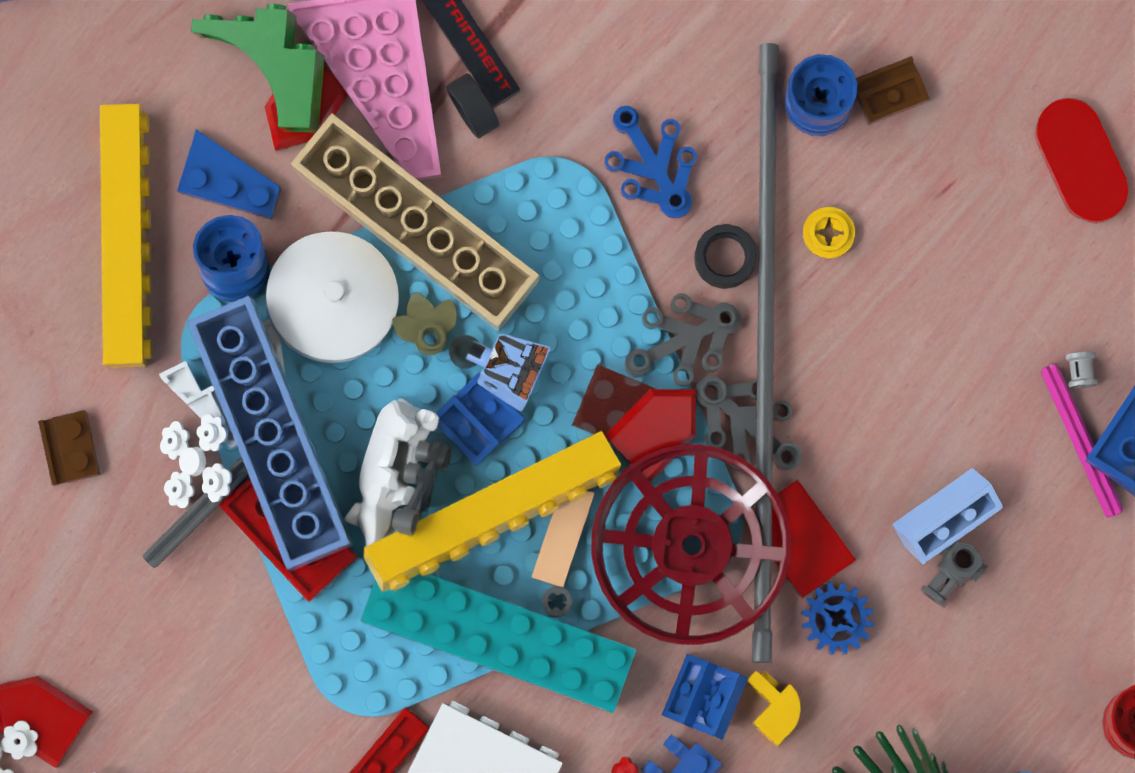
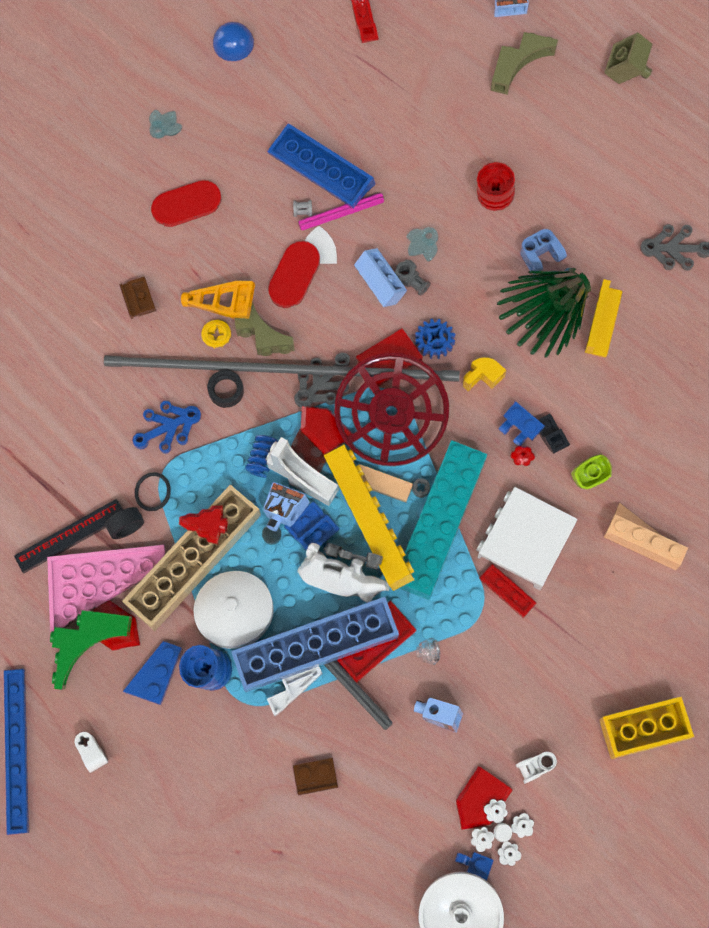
camera: 85 degrees left, 10 degrees down
(95, 88) = (92, 754): none -> white piece
(123, 236) = (185, 737): yellow brick -> none
(165, 657) = (448, 716): none -> light blue torso
(193, 461) = (328, 695): white plant -> none
(275, 624) = (428, 651): none -> clear cone
(425, 319) = (251, 555): olive plate -> none
(464, 240) = (207, 523): none -> red rock
(533, 121) = (167, 495): none -> black piece
(564, 394) = (300, 475): none -> white arch
(600, 326) = (258, 461): none -> blue piece
(687, 336) = (271, 410): dark grey plant -> none
(704, 696) = (477, 410): blue slope -> none
(824, 78) = (133, 322): blue wheel -> none
(852, 287) = (267, 339): none -> olive arch
(883, 270) = (241, 301): none -> light orange plate
(951, 362) = (294, 274): none -> red tile
(1007, 403) = (324, 244): none -> white sticker
(1021, 590) = (420, 244): none -> clear light blue plate

